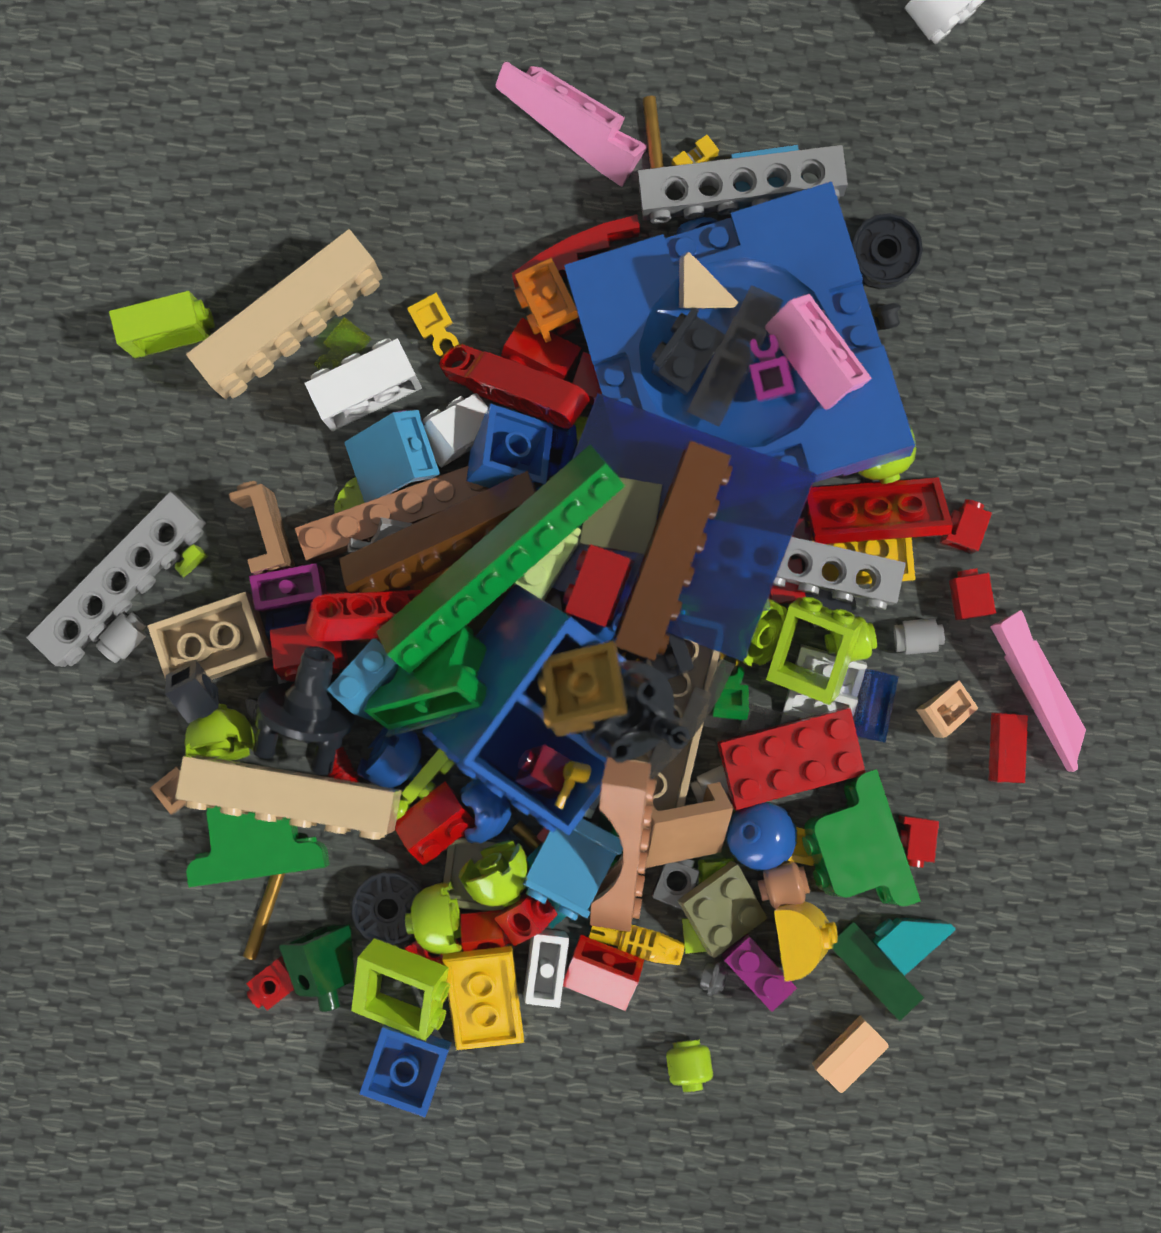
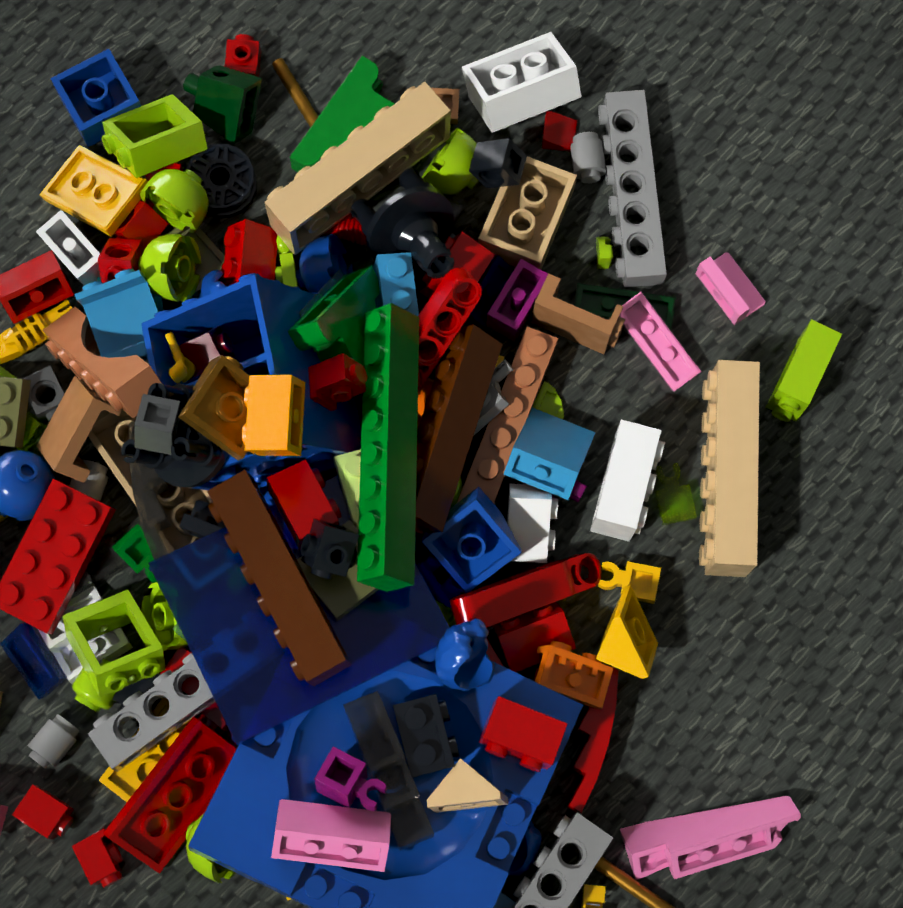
camera: 120 degrees right, 10 degrees down
(102, 739) = (522, 82): none -> white brick
(119, 680) = (558, 131): none -> red slope
(137, 440) = (730, 287): none -> bright pink panel
(226, 516) = (603, 301): none -> dark green tile
(230, 457) = (658, 342): none -> bright pink tile
(482, 286) = (628, 638): none -> yellow slope
(485, 639) = (336, 380): none -> red brick
(562, 641) = (274, 415): none -> light orange brick
(609, 371) = (463, 656): none -> blue hair
(618, 528) = (329, 549): none -> black brick
(625, 282) = (522, 734): none -> red brick
(644, 729) = (157, 424): none -> dark grey brick

